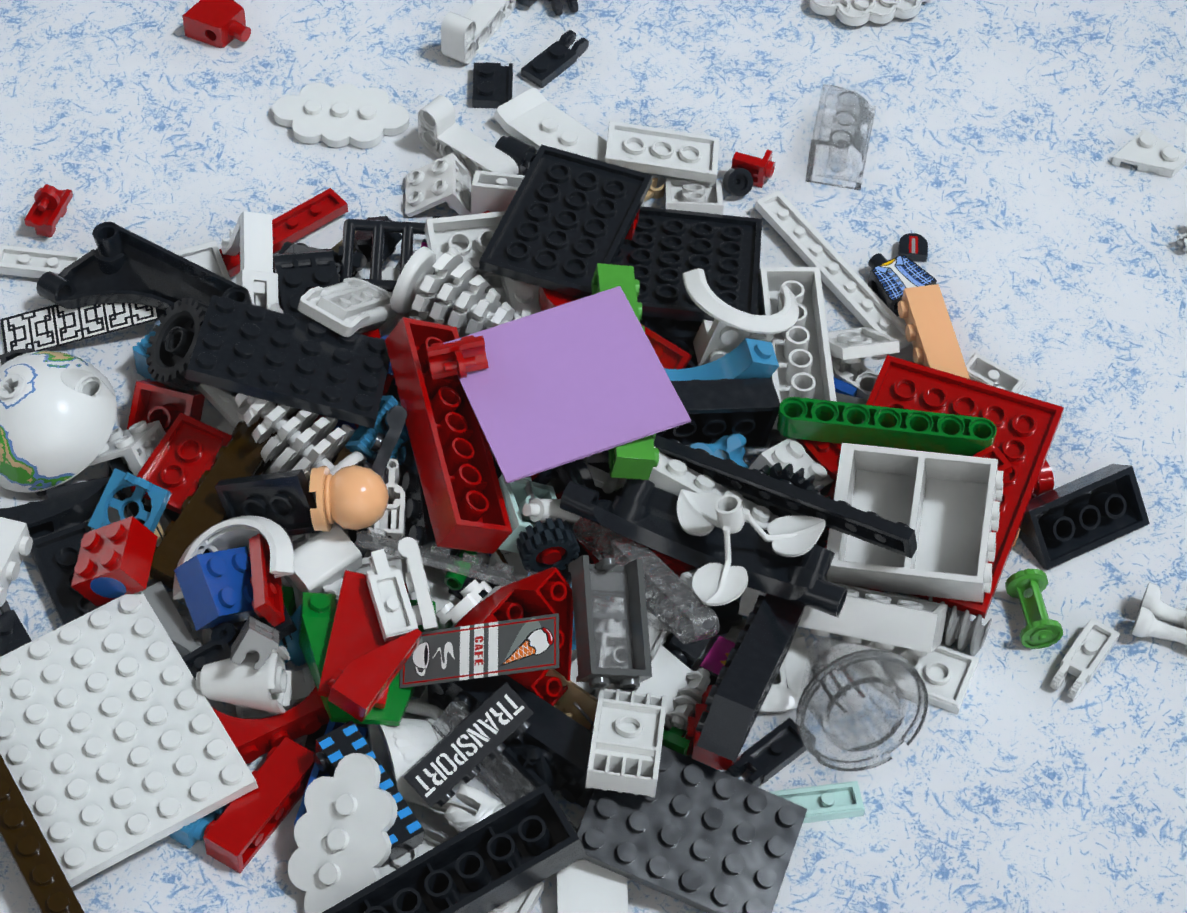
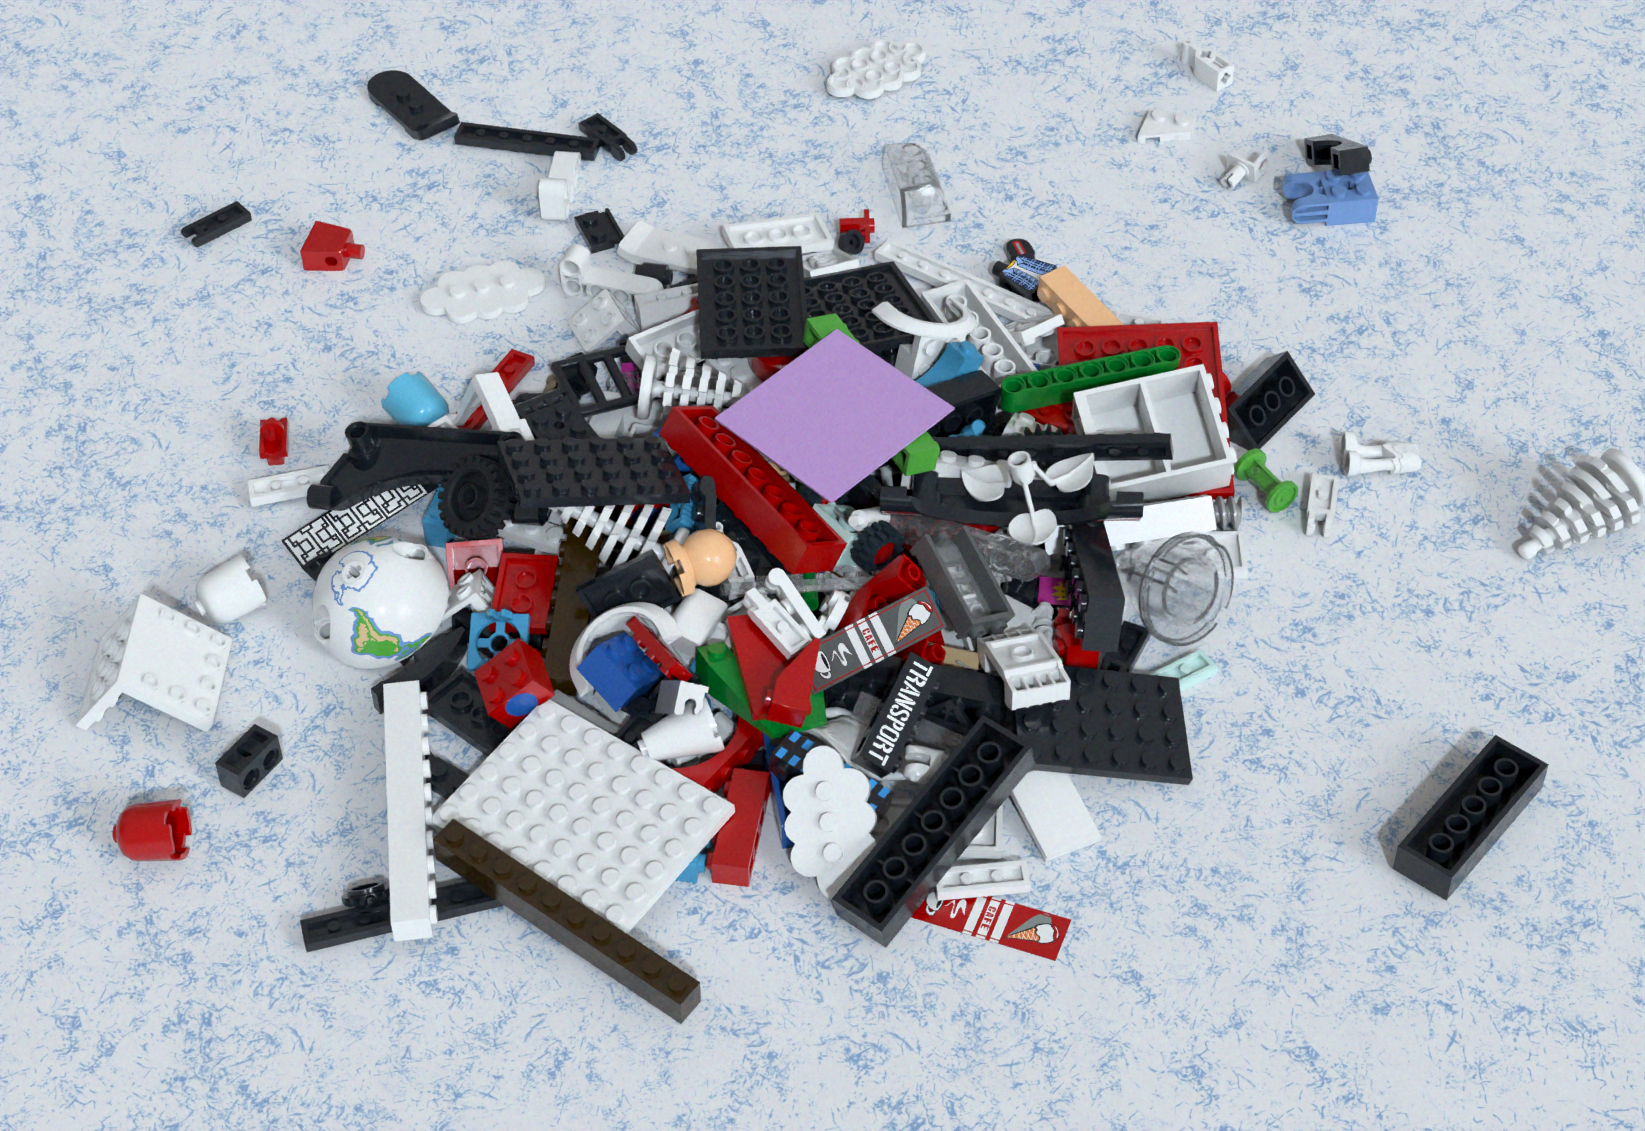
camera: 20 degrees left, 5 degrees down
(199, 215) = (414, 401): none -> medium azure cylinder
(347, 305) = (605, 422): white piece -> none
(457, 357) = (737, 421): red hips -> none
(554, 59) = (640, 195): black hinge -> none

